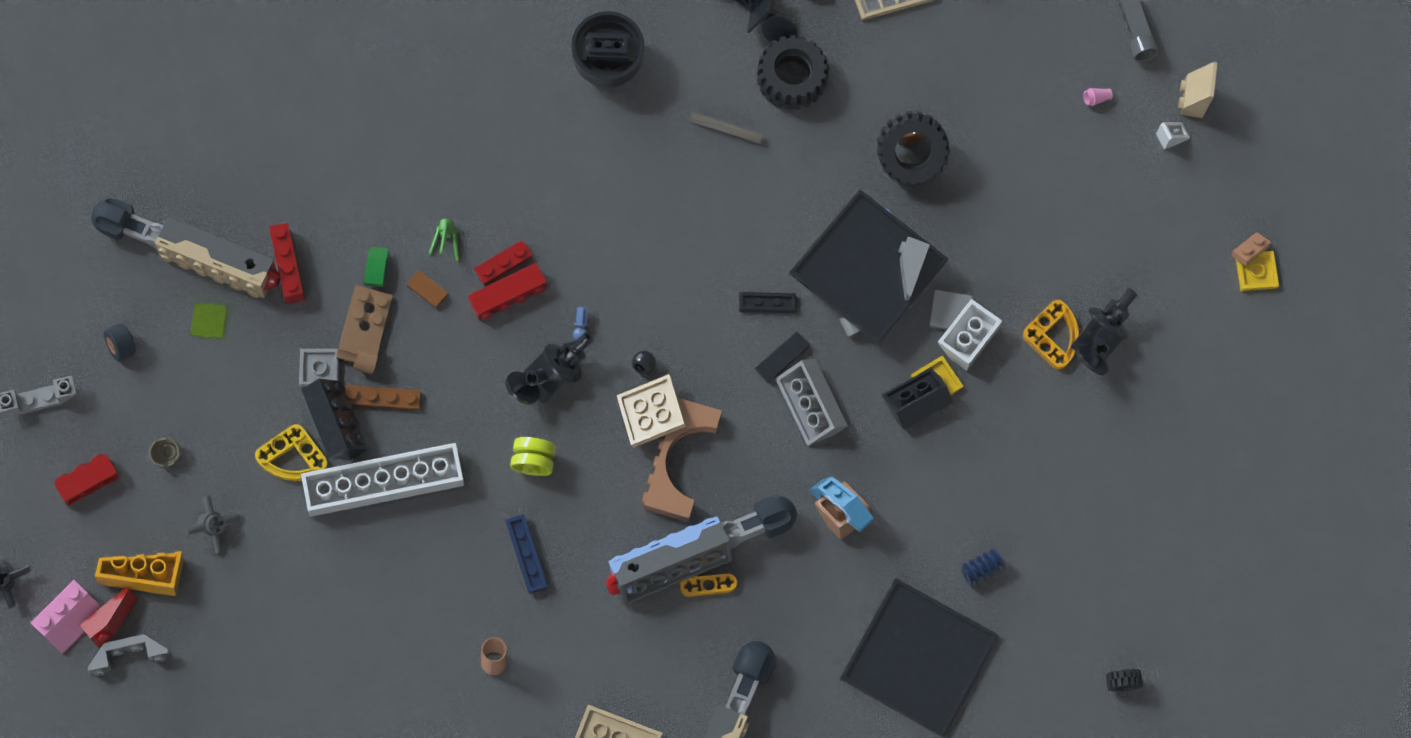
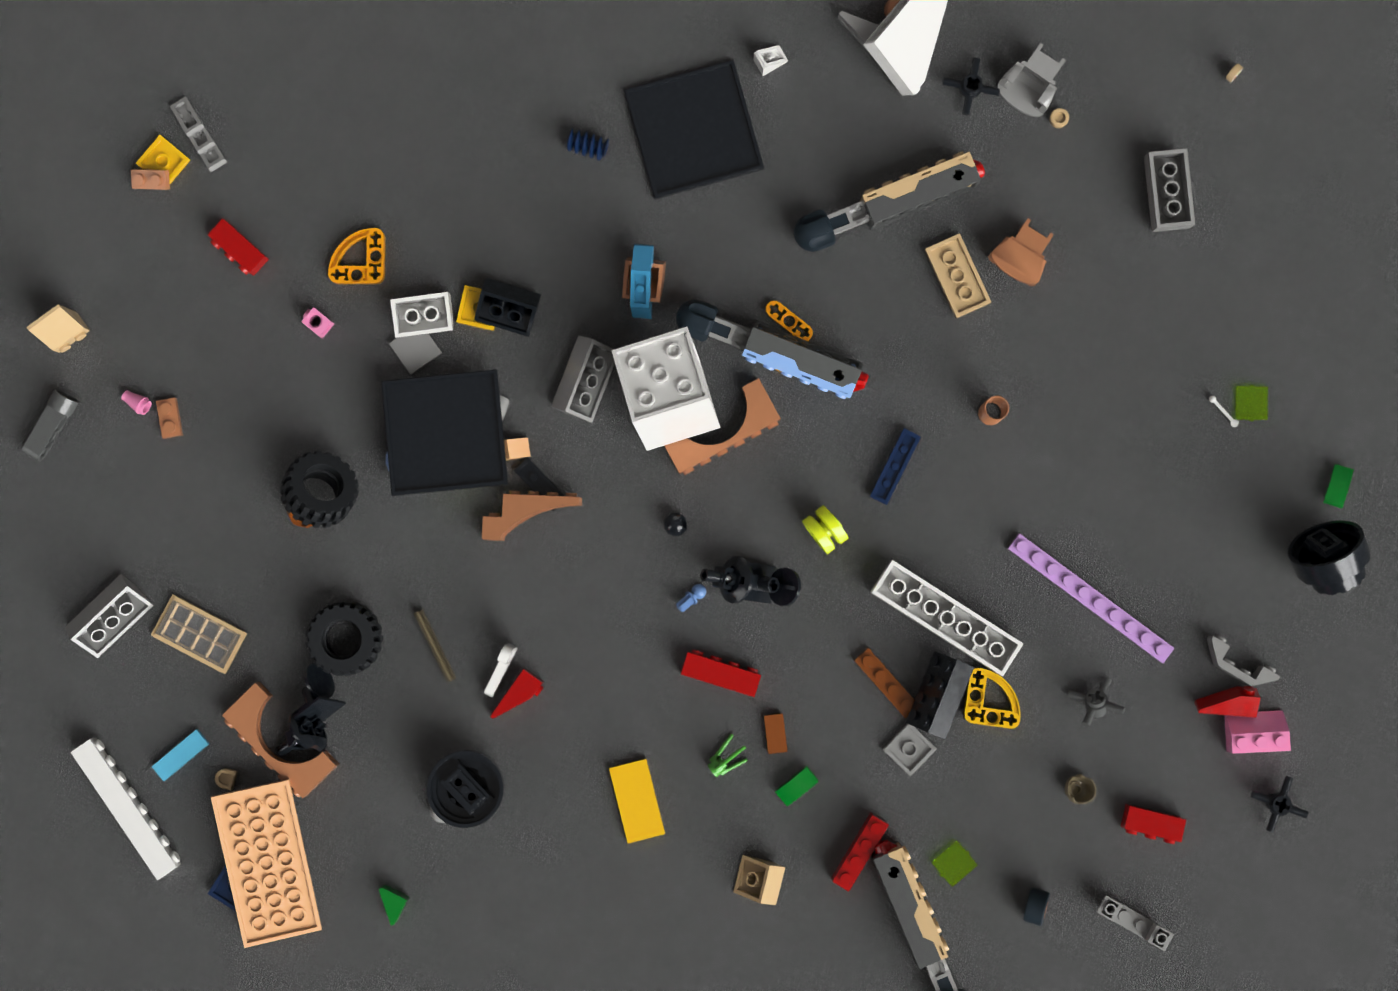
camera: 125 degrees left, 15 degrees up
(142, 573) = (1173, 709): light orange wedge -> none
(286, 598) = (1090, 598): none -> lavender plate
(340, 180) = (759, 880): none -> tan slope
(359, 345) = (863, 734): medium nougat hinge -> none
(480, 155) = (637, 800): none -> yellow tile
(503, 262) = (701, 700): red plate -> none
(635, 152) = (522, 690): none -> red slope
(651, 411) = (707, 481): tan plate -> none
(667, 154) = (504, 658): none -> white beam
(750, 429) = (665, 388): none -> white piece
(764, 271) = (519, 508): none -> nougat arch
(782, 357) = (571, 433): black tile -> none
(809, 308) = (517, 448): none -> light nougat slope
(911, 261) = (412, 402): light grey slope -> none
(1030, 268) = (324, 326): none -> bright pink brick
(1064, 107) = (169, 418): none -> nougat plate
(1103, 333) = (328, 220): black piece -> none
(1143, 260) = (237, 247): none -> red brick
(1171, 134) = (113, 319): white slope -> none
(1254, 312) = (198, 134): none -> light grey slope

